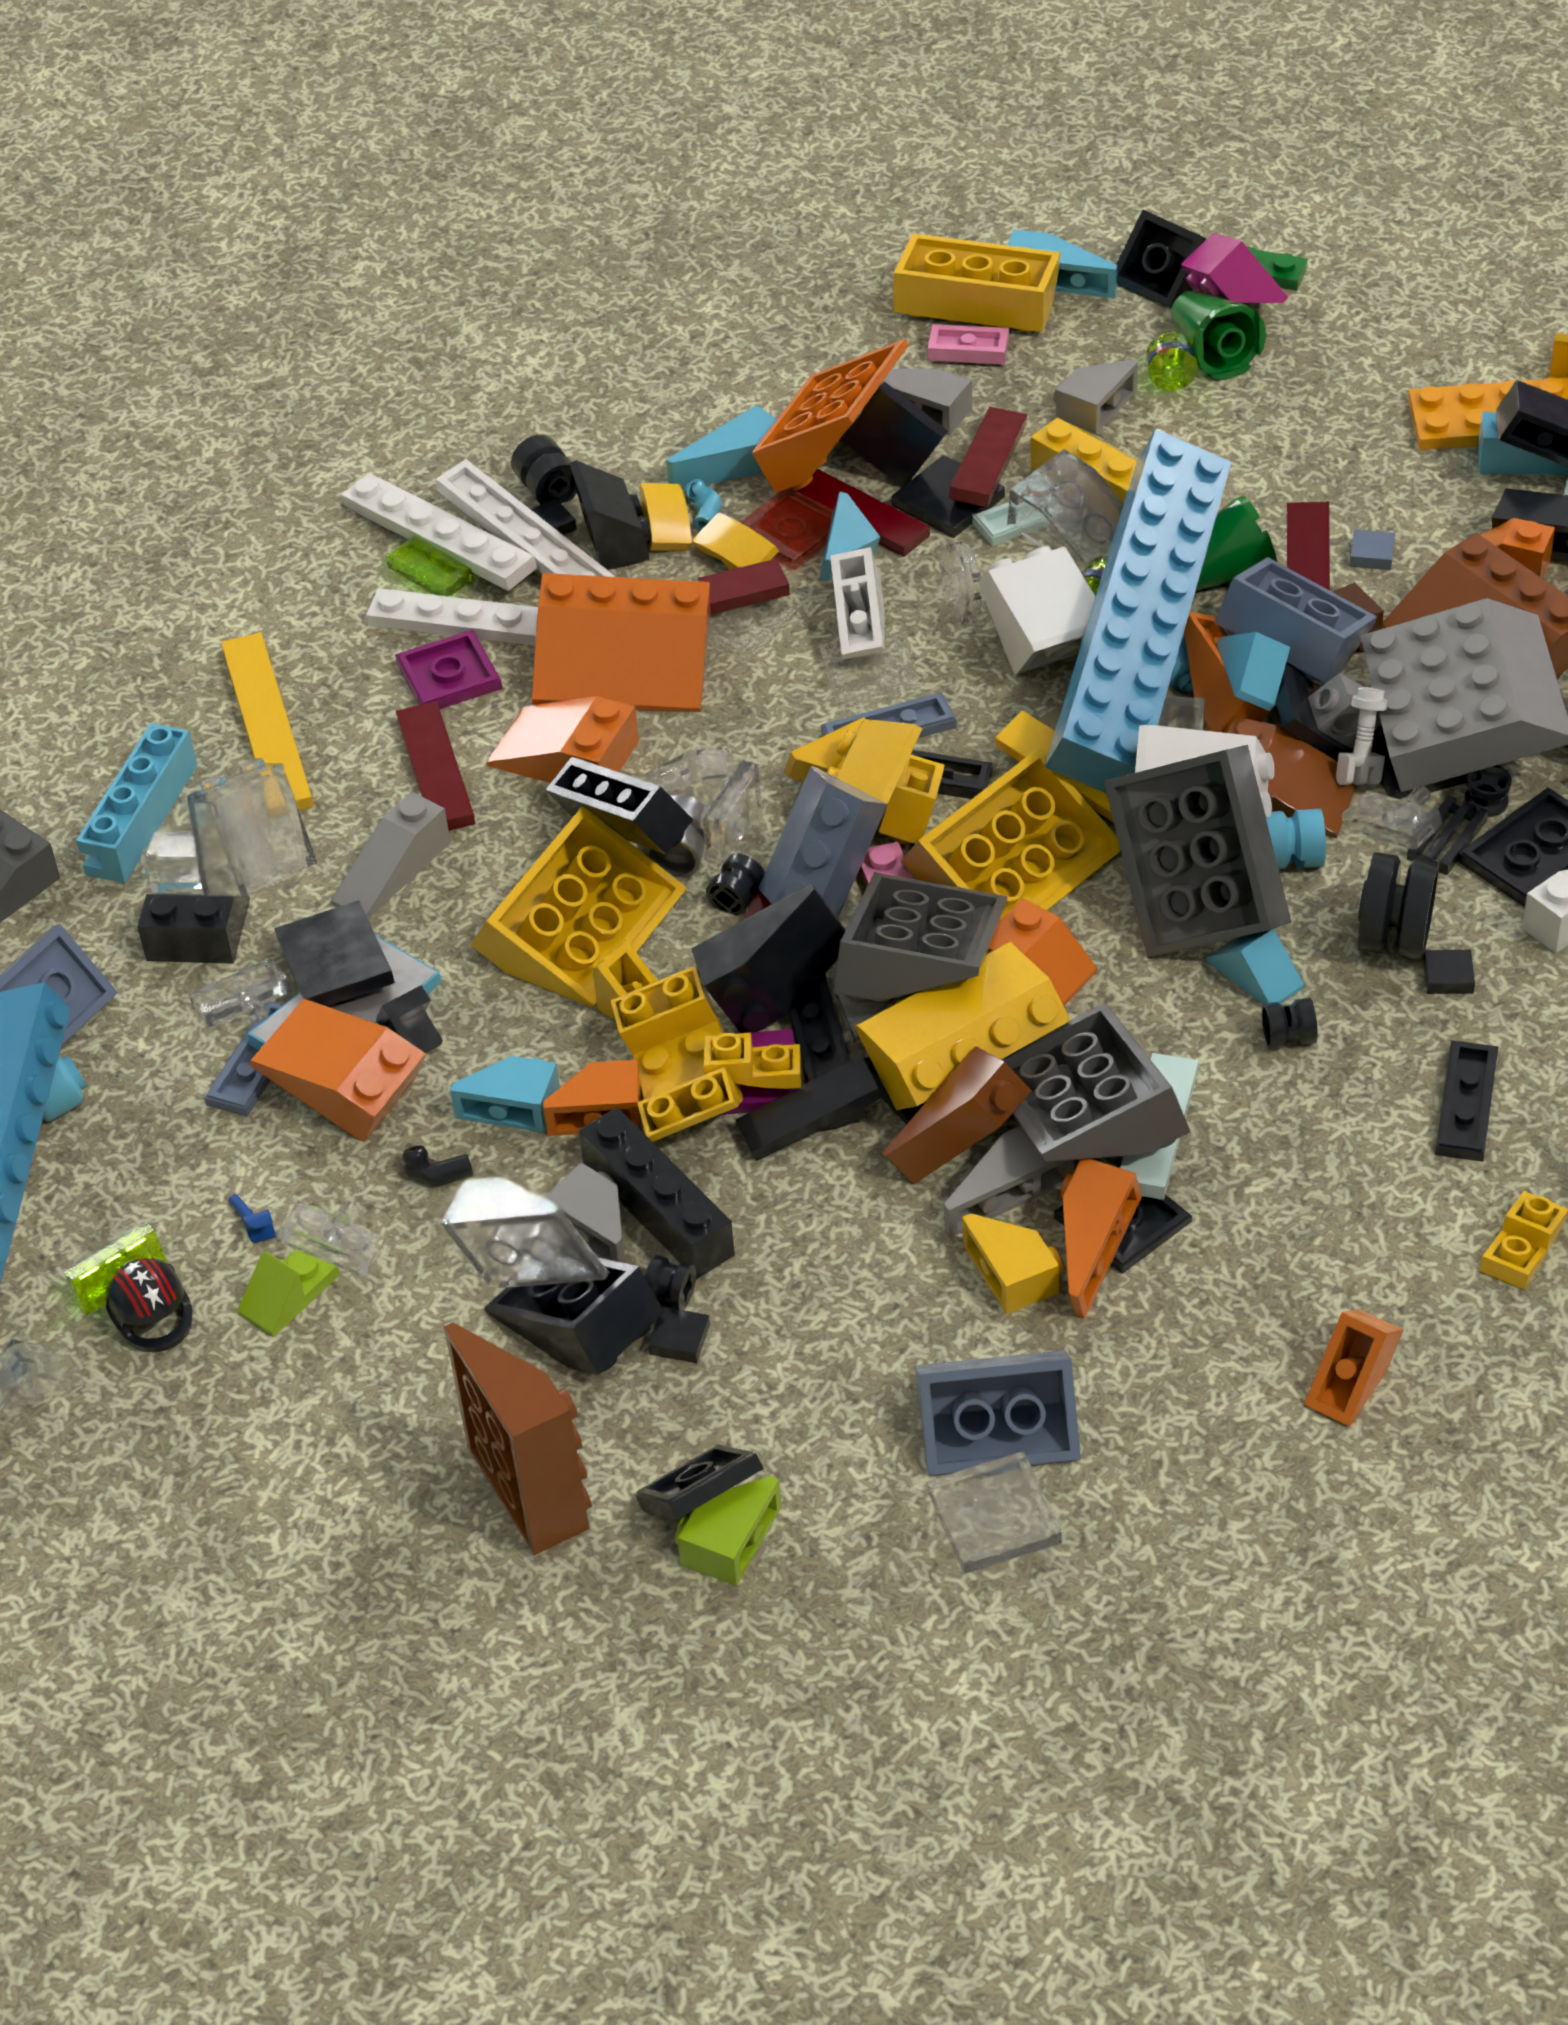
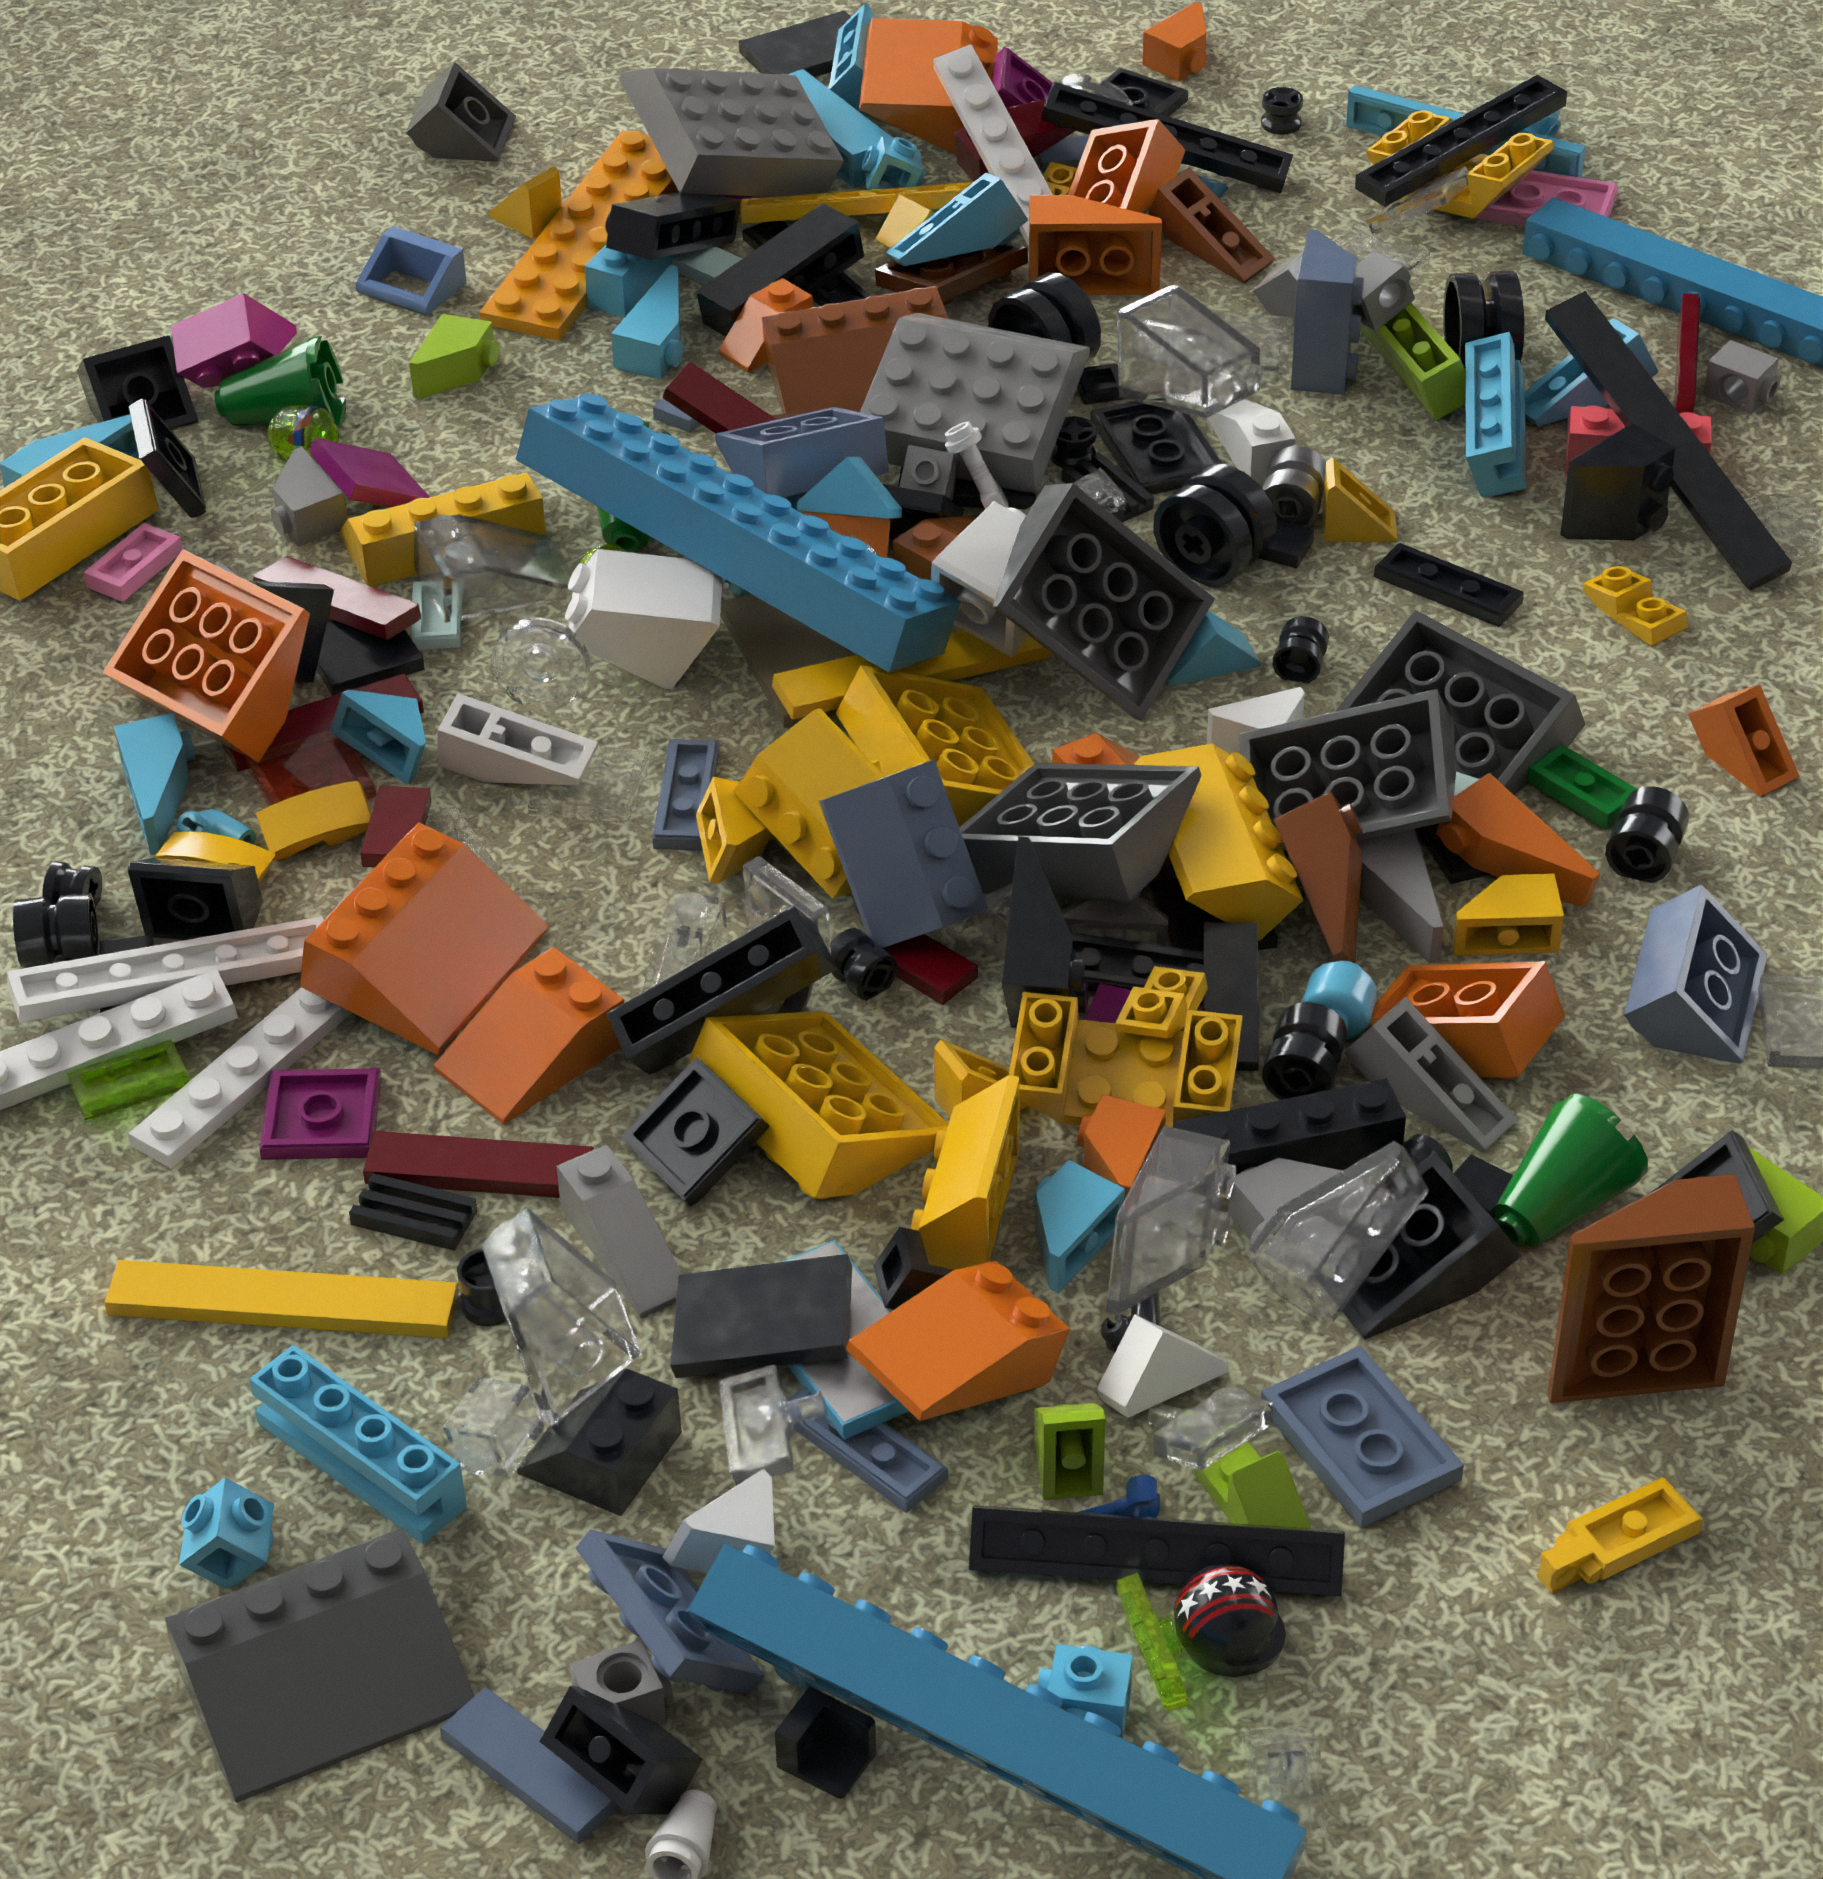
camera: 70 degrees left, 5 degrees down
(25, 784) = (226, 1533): none -> medium azure brick
(46, 1235) = (1091, 1682): none -> medium azure brick
(130, 1009) = (734, 1518): none -> white slope
(205, 1248) = (1152, 1547): none -> black plate
(275, 1157) = (1070, 1450): none -> lime slope
(313, 808) = (478, 1295): none -> black wheel
(330, 1519) = (1619, 1536): none -> yellow hinge
(368, 1332) = (1362, 1436): none -> sand blue plate
(374, 730) = (417, 1205): none -> black tile
(388, 1192) = (1154, 1368): none -> white slope
(502, 1130) = (1170, 1216): none -> clear slope
(503, 856) = (694, 1132): none -> black tile
(520, 1025) = (971, 1177): none -> yellow slope
(598, 451) = (64, 880): none -> black wheel
(699, 1375) = (1569, 1171): none -> green cone
(777, 1262) = (1430, 1077): none -> light grey slope
(779, 1167) = (1304, 1051): none -> black wheel
(837, 1176) = (1346, 991): none -> medium azure head
(867, 1268) = (1485, 1011): none -> orange slope
(1075, 304) = (167, 458): none -> black tile
(1137, 407) = (366, 474): none -> magenta tile
(1169, 1028) = (1252, 714): none -> white slope
(1187, 1324) = (1647, 834): none -> black wheel
(1223, 1267) = (1580, 785): none -> green plate
(1261, 1152) = (1497, 708): none -> dark grey slope
(1331, 395) = (453, 355): none -> lime slope
(1437, 354) = (416, 257): none -> medium blue tile
(1460, 489) = (650, 334): none -> medium azure slope
(1516, 997) = (1353, 510): none -> yellow slope
(1519, 947) = (1296, 484): none -> flat silver wheel

